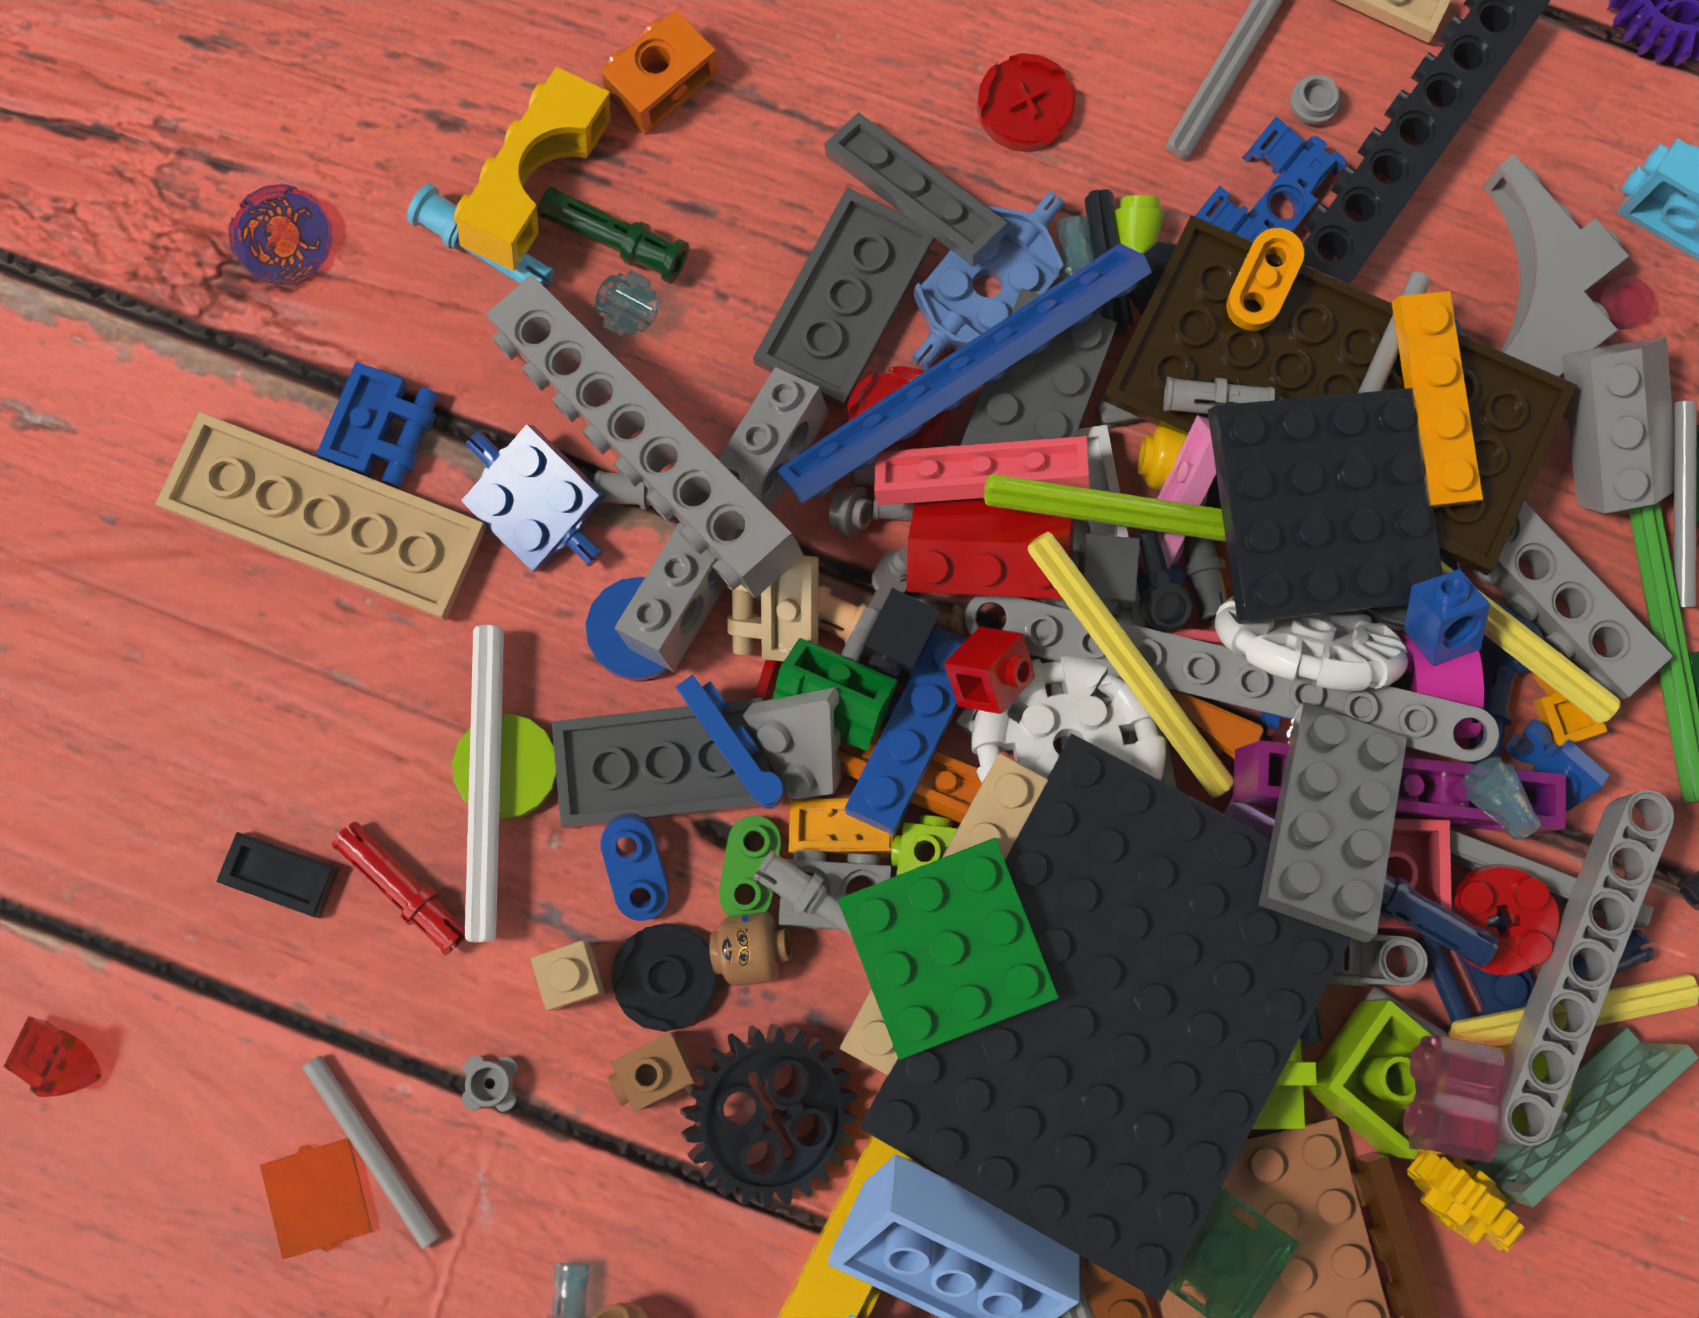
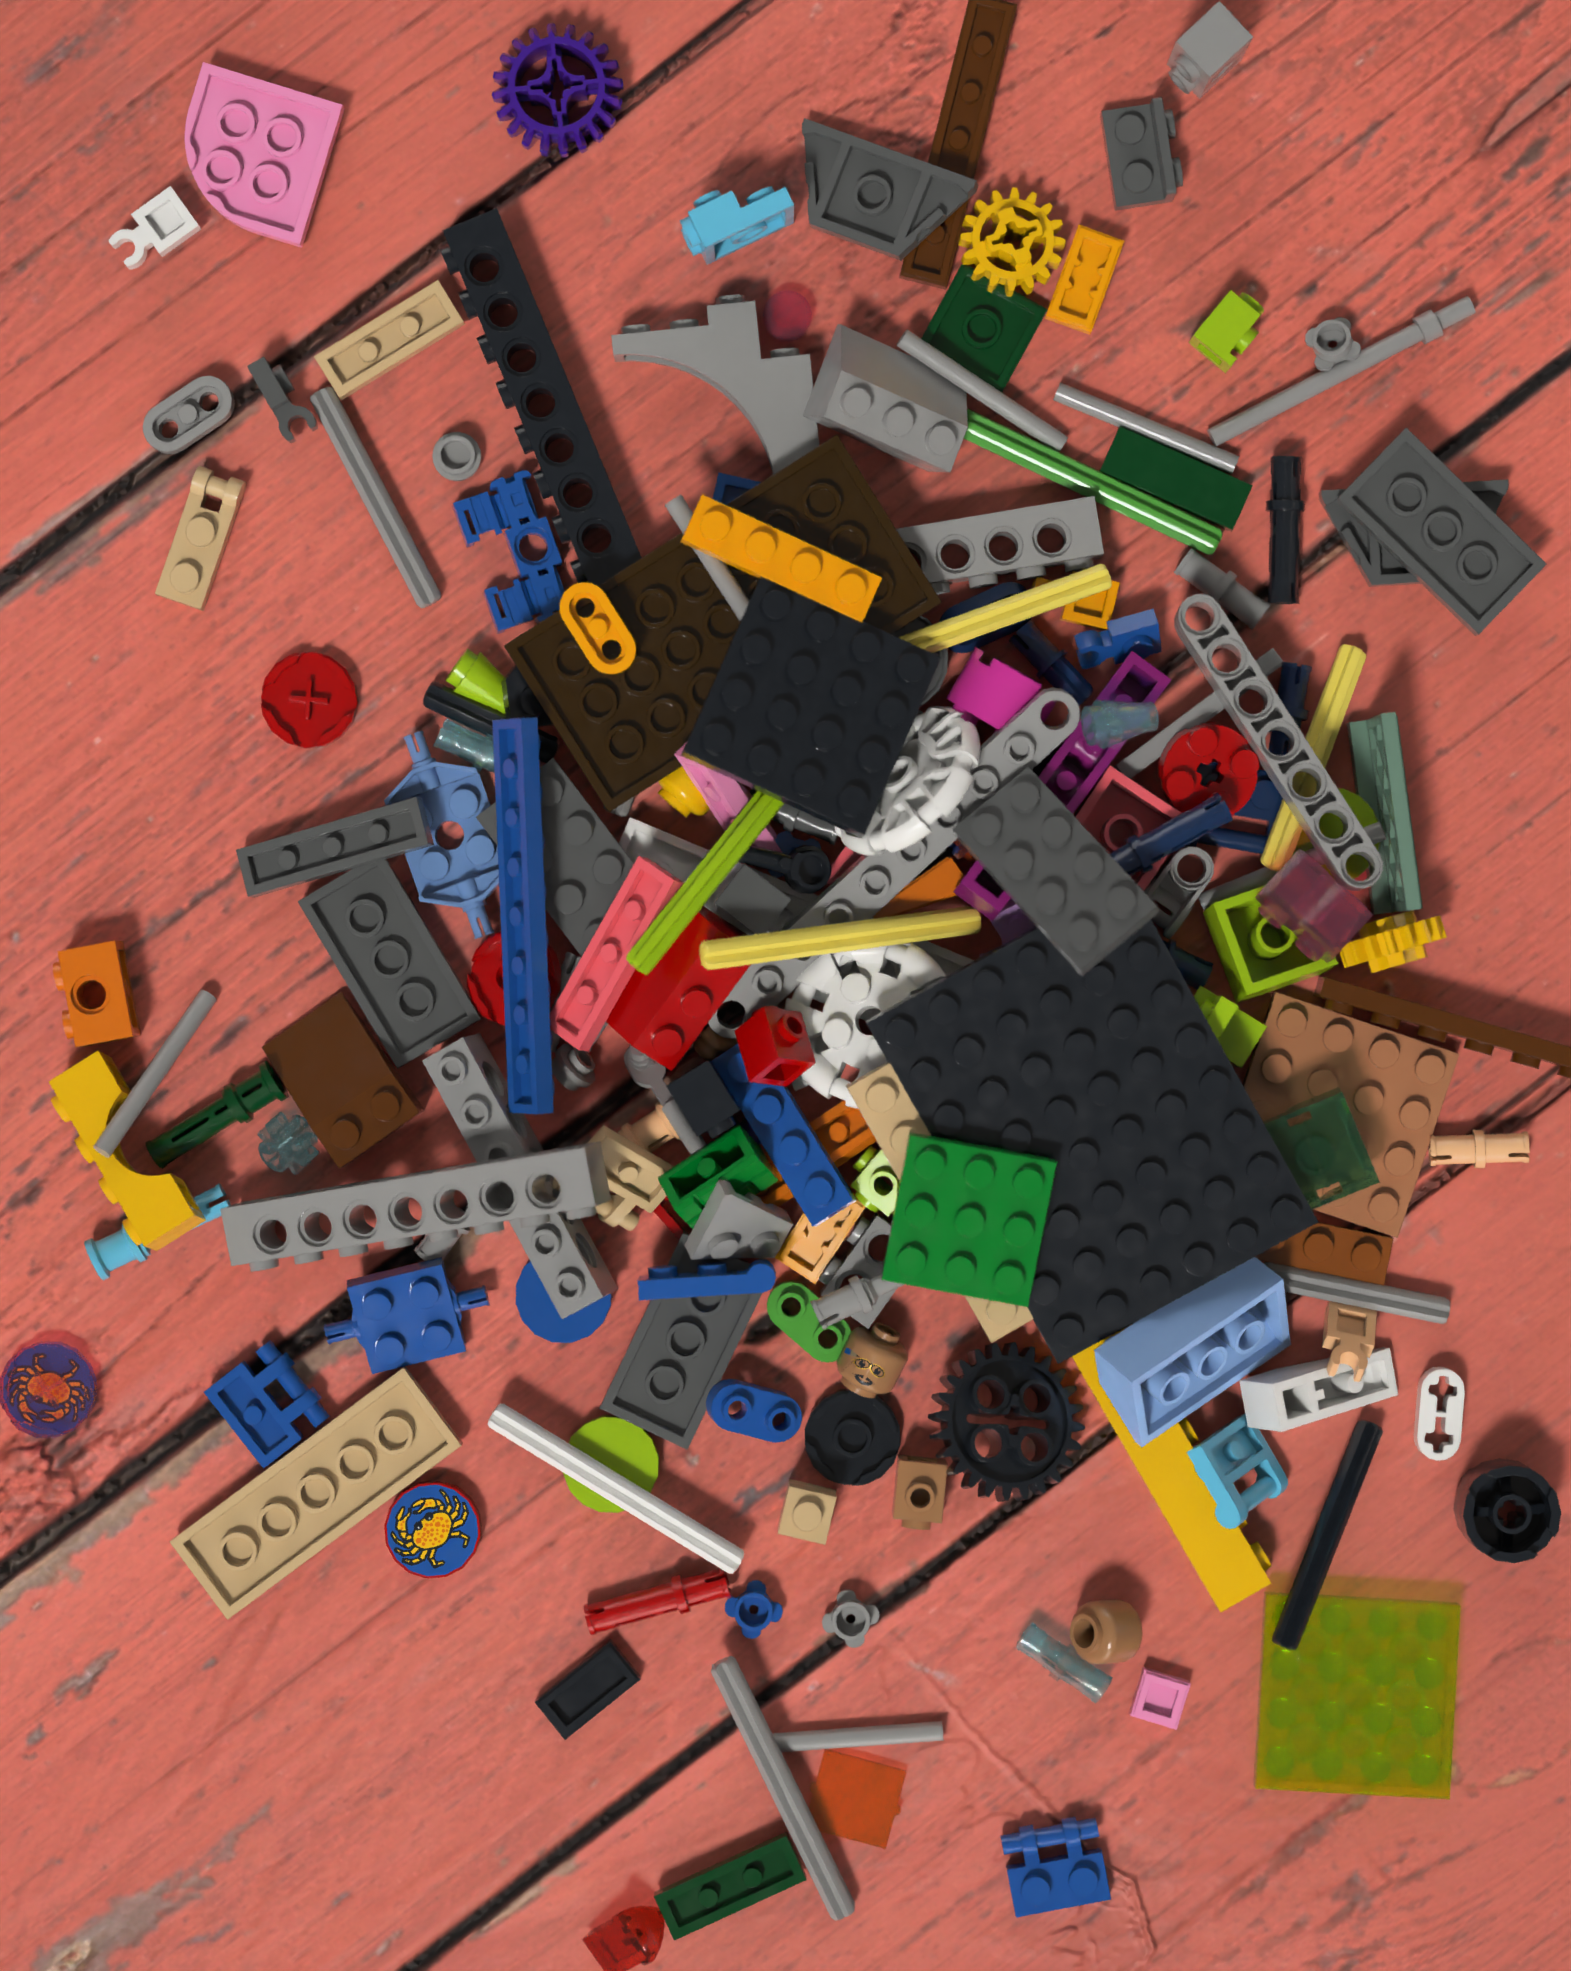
camera: 50 degrees left, 10 degrees up
(159, 1128) = (730, 1886): none -> dark green plate
(283, 1121) = (783, 1788): none -> light grey axle
(348, 641) = (432, 1529): none -> tile
(430, 991) = (753, 1623): none -> blue plate
(617, 150) = (154, 1073): none -> light grey bar
(709, 323) = (341, 1080): none -> reddish brown slope
(1201, 396) = (670, 729): light grey pin -> none
(1446, 617) = (955, 671): blue brick -> none
(1669, 865) = (1222, 588): none -> light grey pin

